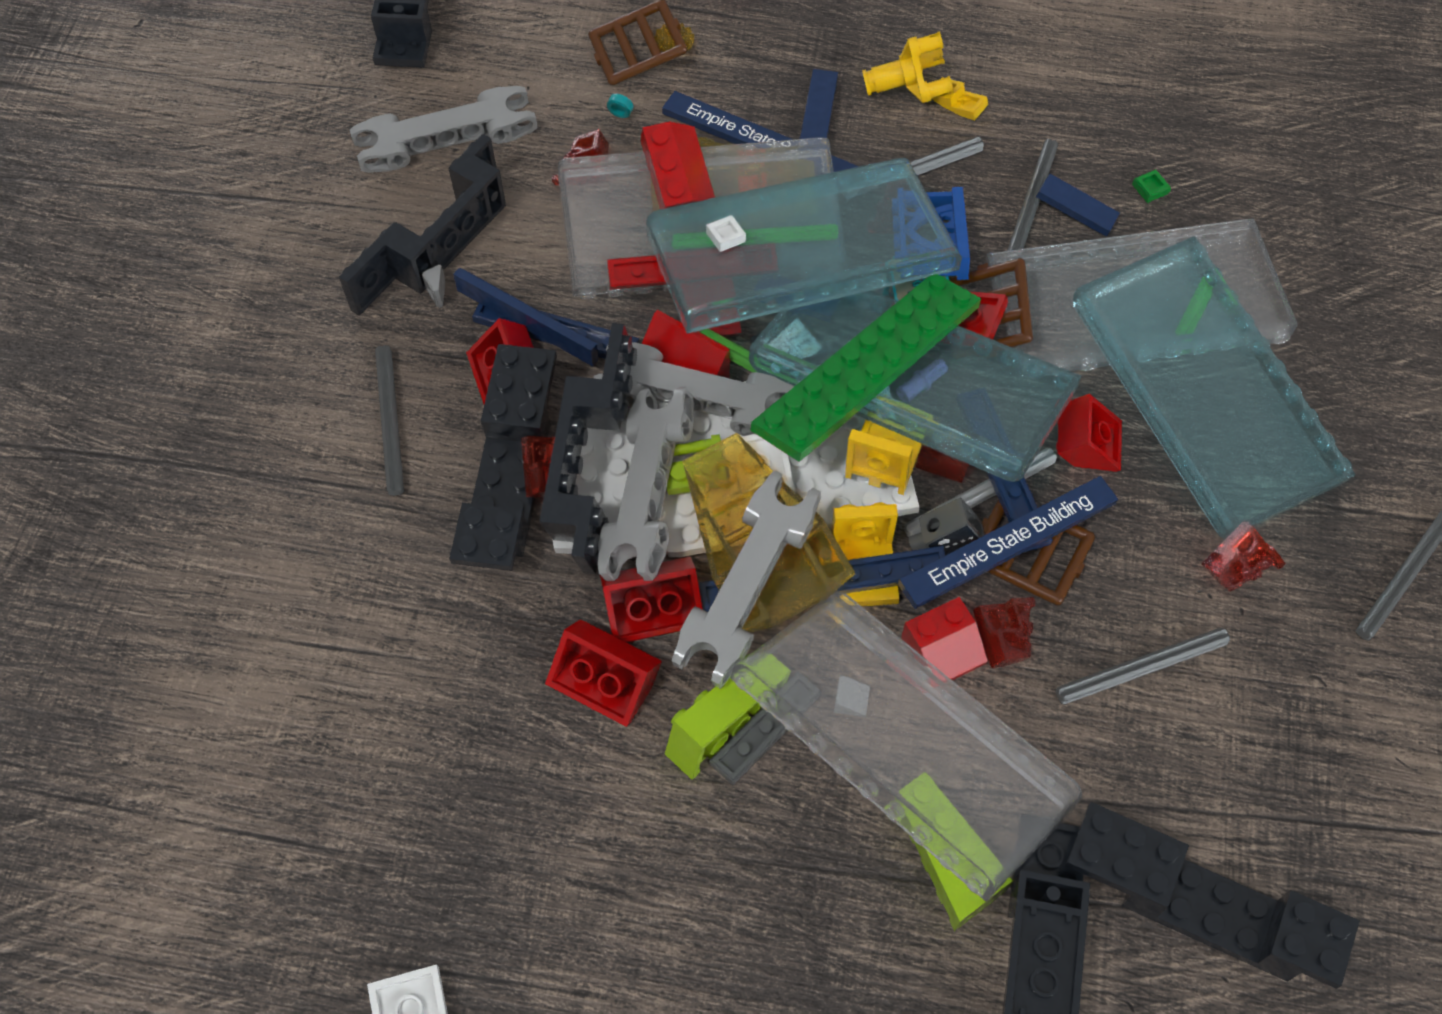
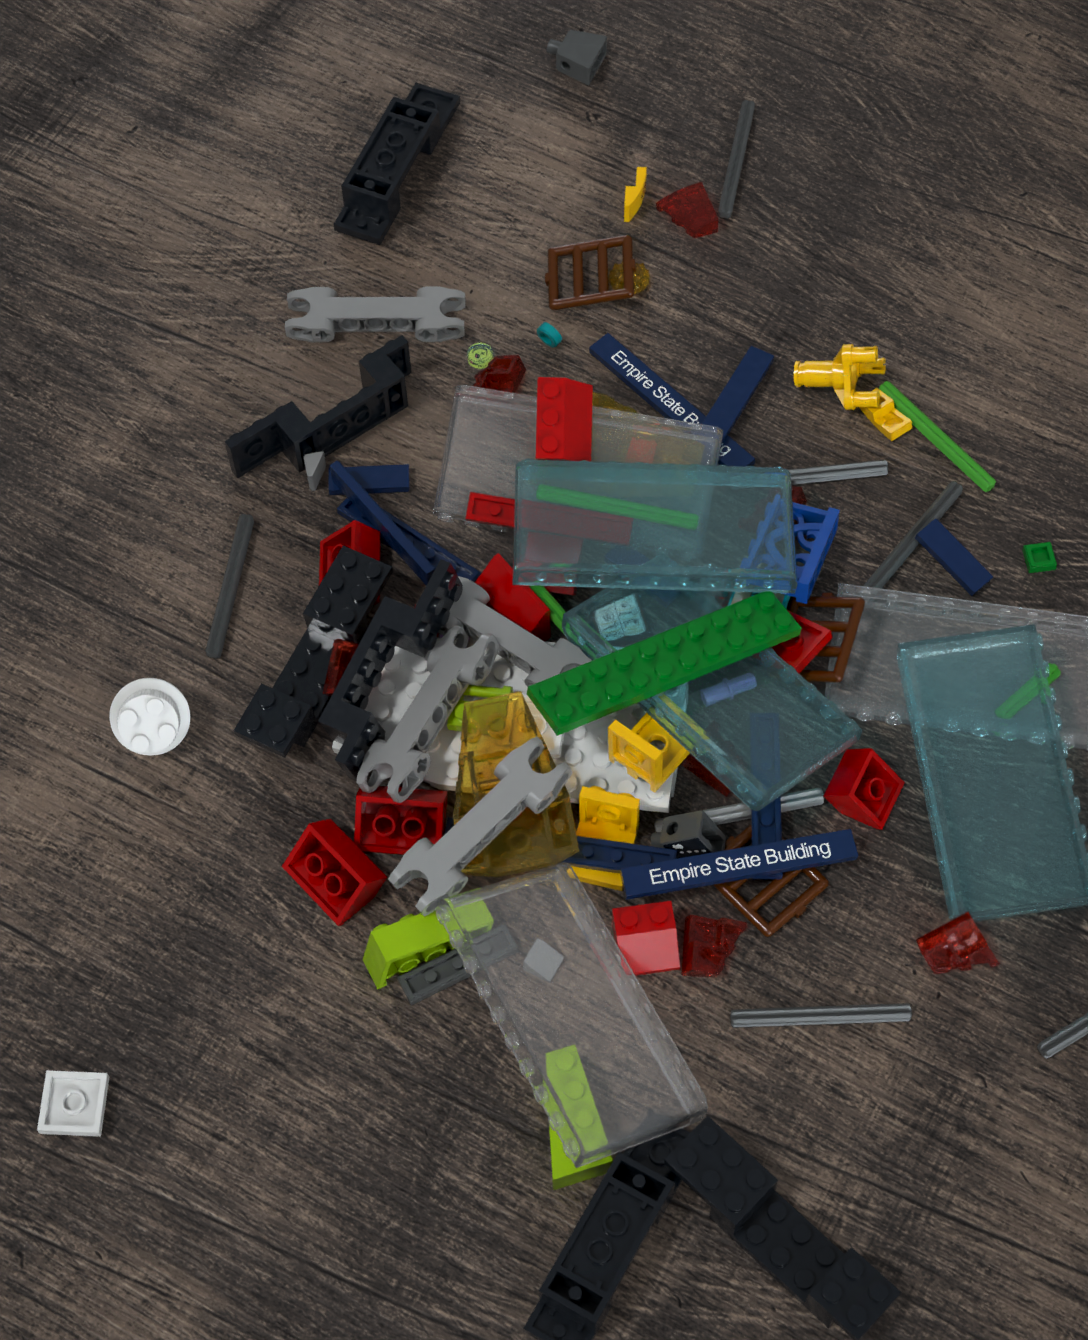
camera: 20 degrees right, 0 degrees up
(352, 571) = (149, 716): none -> white piece
(505, 277) = (377, 479): none -> dark blue tile
(559, 141) = (479, 355): none -> clear light blue tile
(725, 233) = (578, 500): white plate -> none
(1019, 108) = (939, 438): none -> bright green axle

